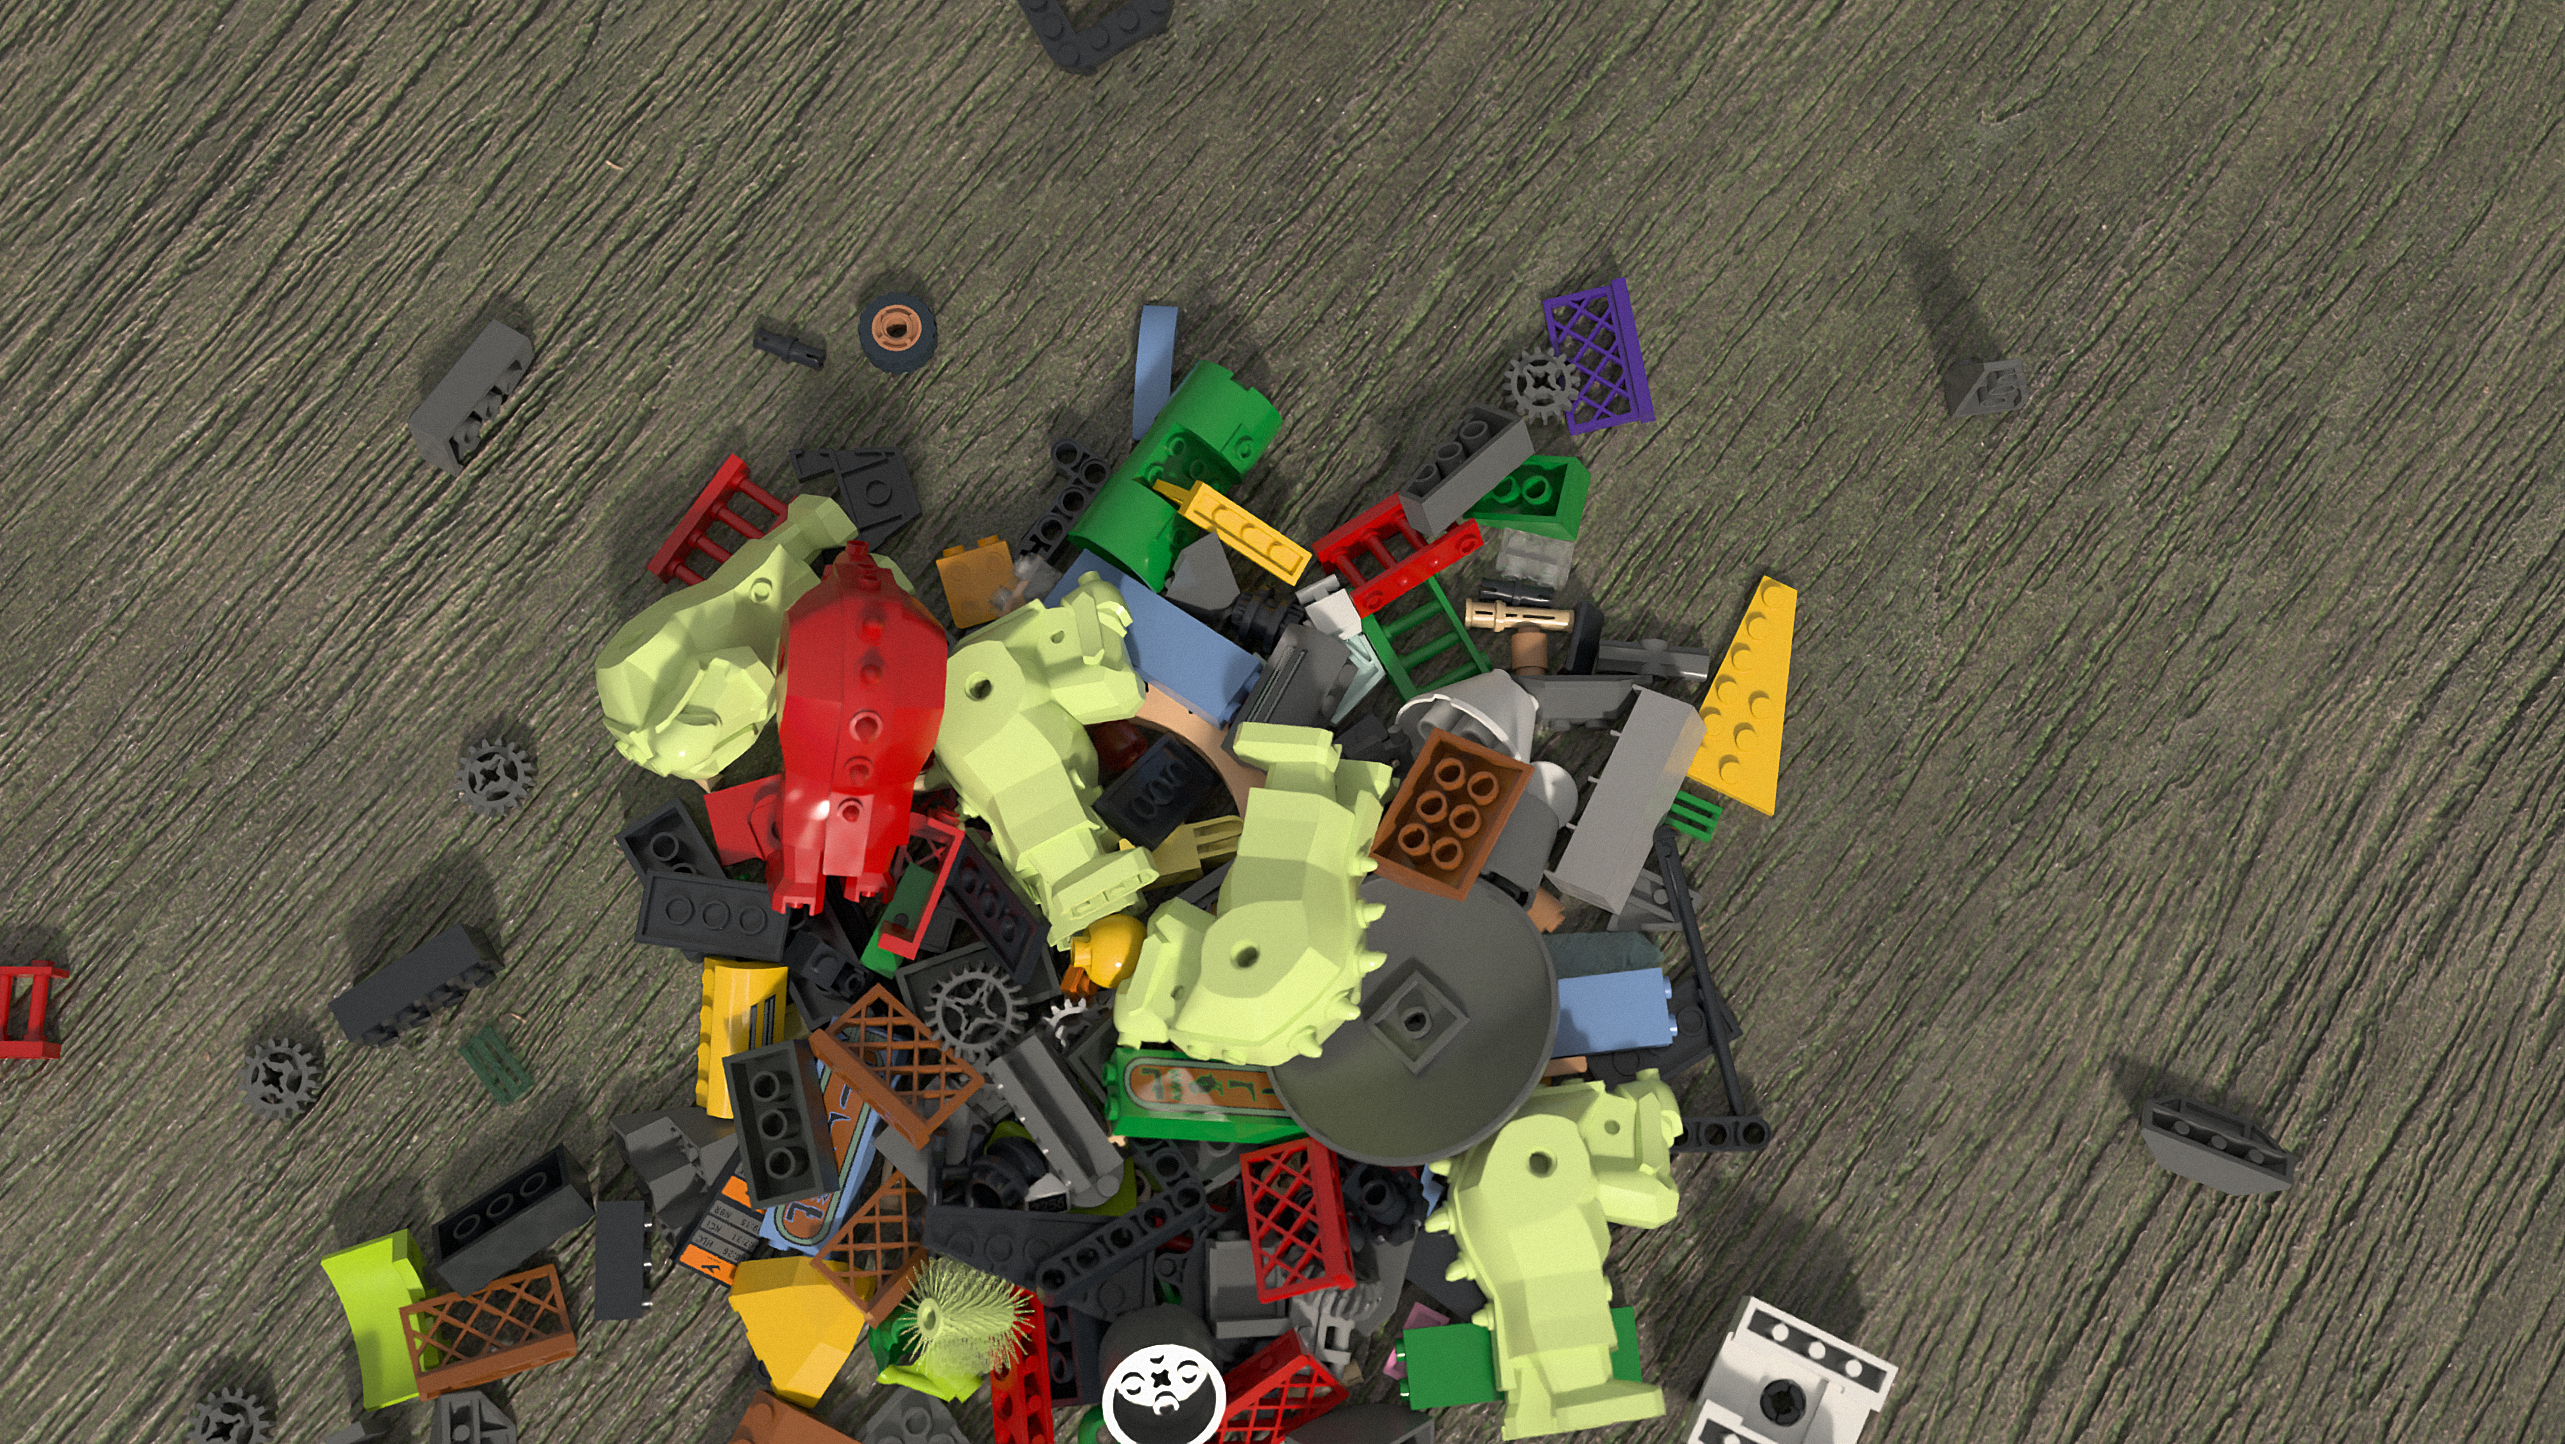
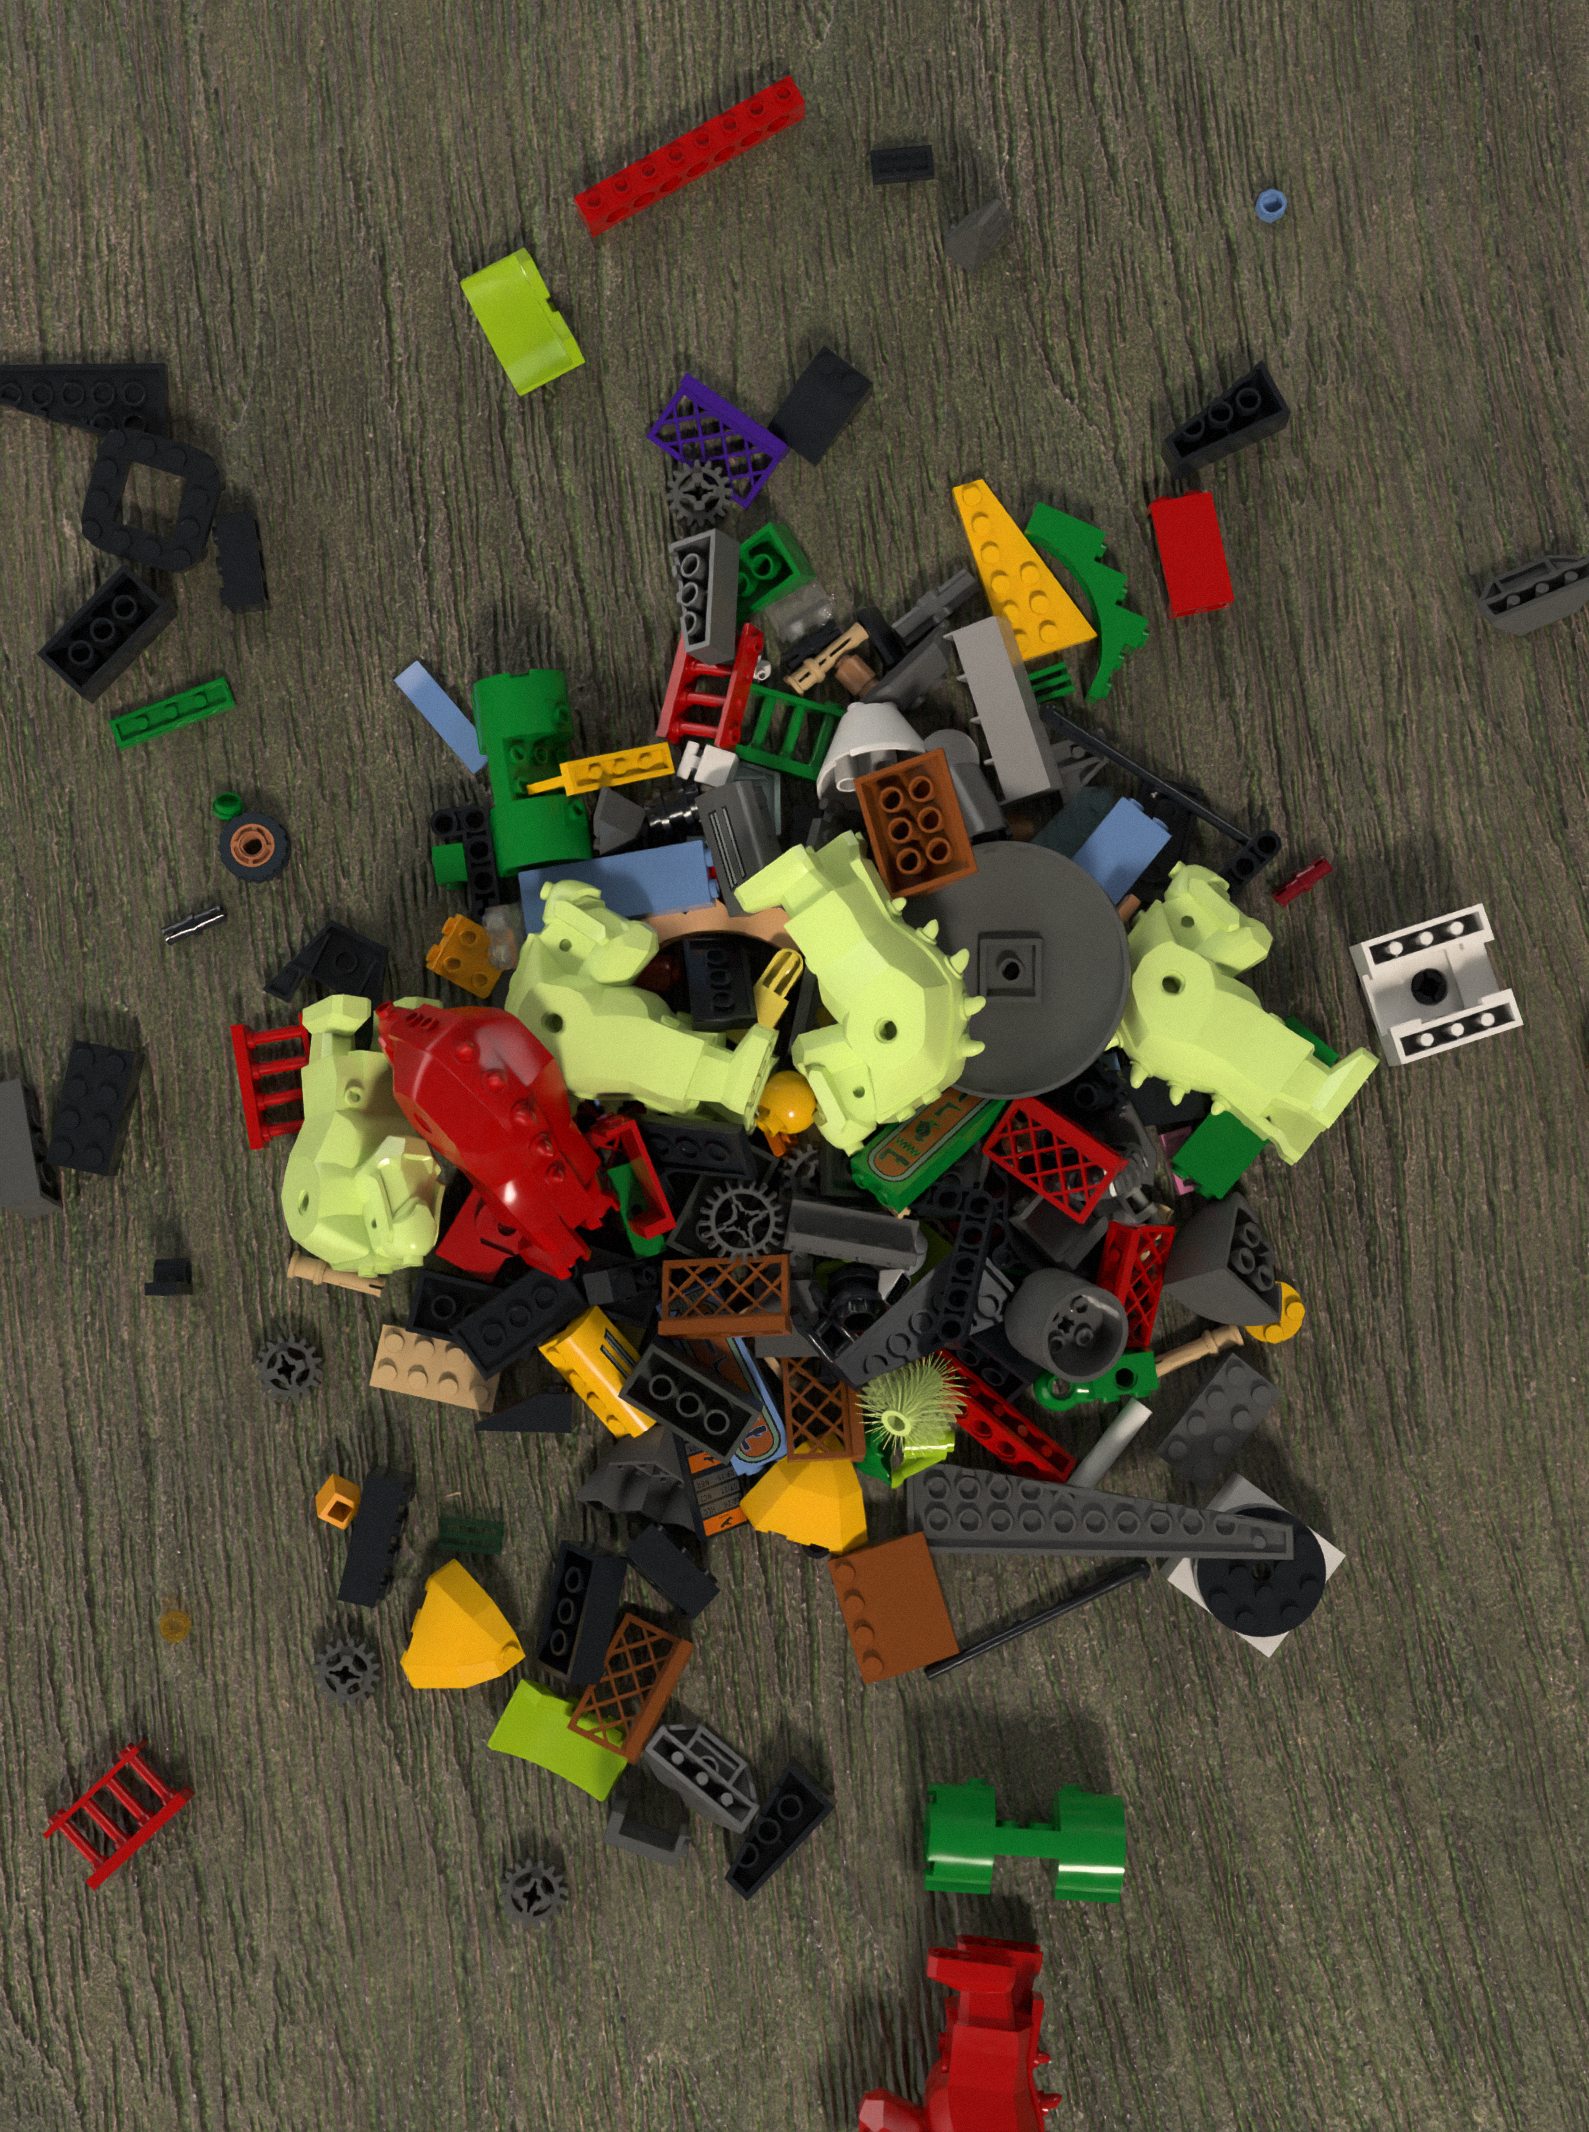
camera: 50 degrees left, 10 degrees up
(178, 899) = (166, 1630): none -> clear yellow plate
(396, 1138) = (458, 1634): none -> yellow brick
(416, 925) = (338, 1501): none -> light orange brick
(478, 611) = (171, 1278): none -> black plate
(562, 419) = (95, 1108): none -> black brick
(591, 708) = (321, 1271): none -> tan pin
(604, 894) = (431, 1370): none -> tan plate
(661, 1021) = (544, 1411): none -> black slope
(910, 280) = (227, 806): none -> green plate
(942, 170) = (172, 713): none -> green tile
(952, 60) = (107, 634): none -> black brick
(1036, 492) = (450, 866): none -> green brick
(1114, 103) = (241, 562): none -> black brick
(1453, 574) = (762, 670): none -> white piece
(1527, 118) = (520, 323): none -> lime panel
(1714, 406) = (820, 406): none -> black slope
(1756, 1198) = (1301, 881): none -> dark red pin
(1797, 113) = (690, 156): none -> red brick
(1825, 724) = (1076, 547): none -> green arch
(1922, 820) = (1191, 553): none -> red panel
(1972, 275) = (902, 165): none -> black plate
(2060, 739) = (1228, 424): none -> black wedge
(2271, 592) = (1270, 205): none -> medium blue tile

